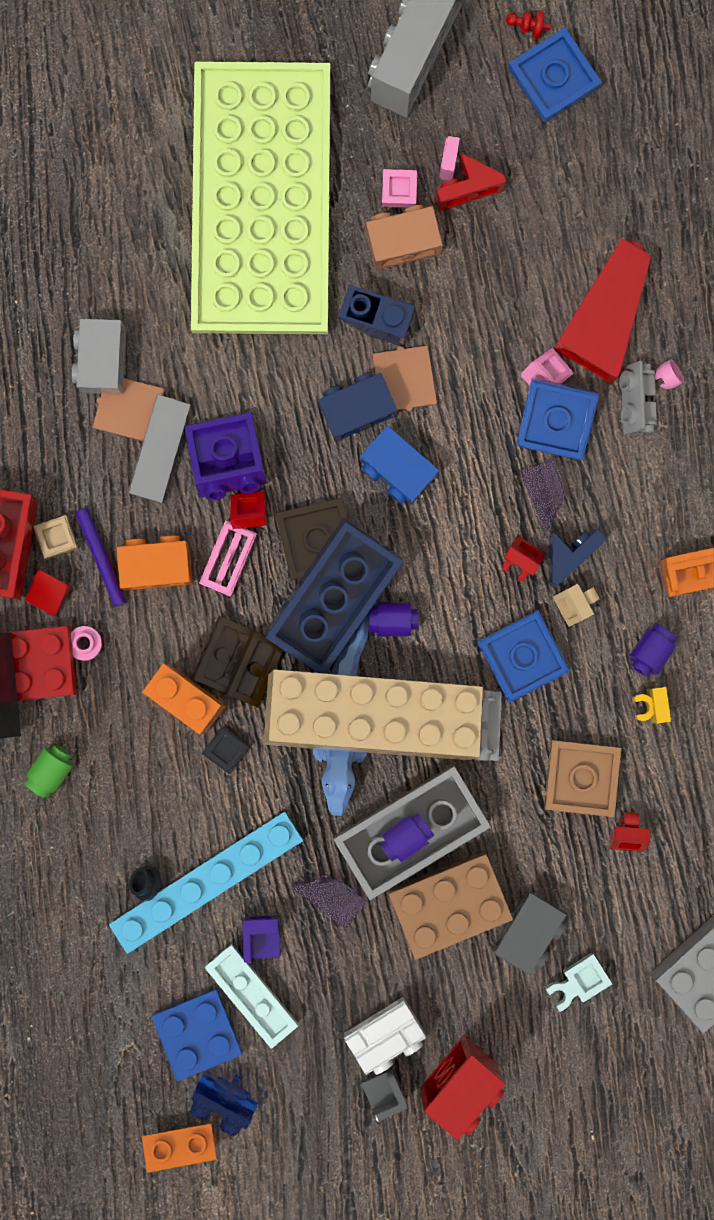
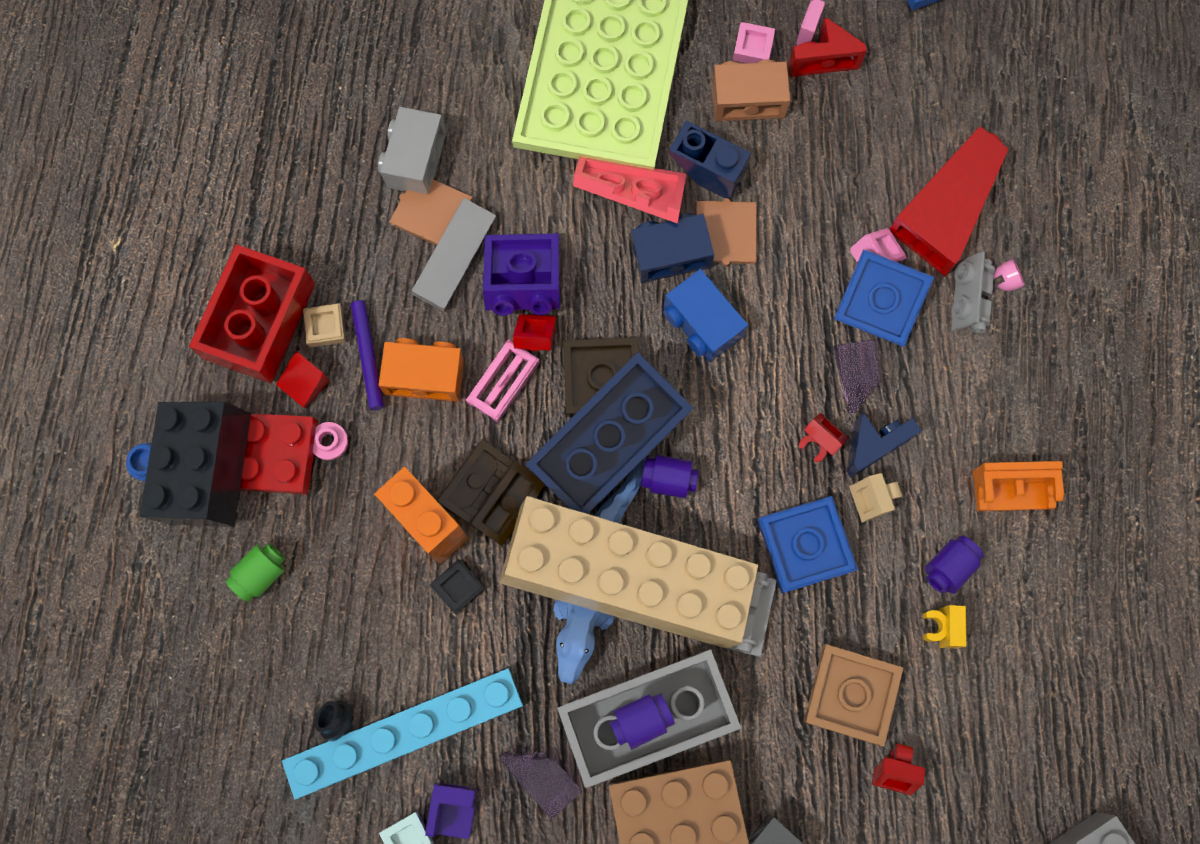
camera: 15 degrees right, 10 degrees down
(317, 355) = (644, 189): none -> coral wing

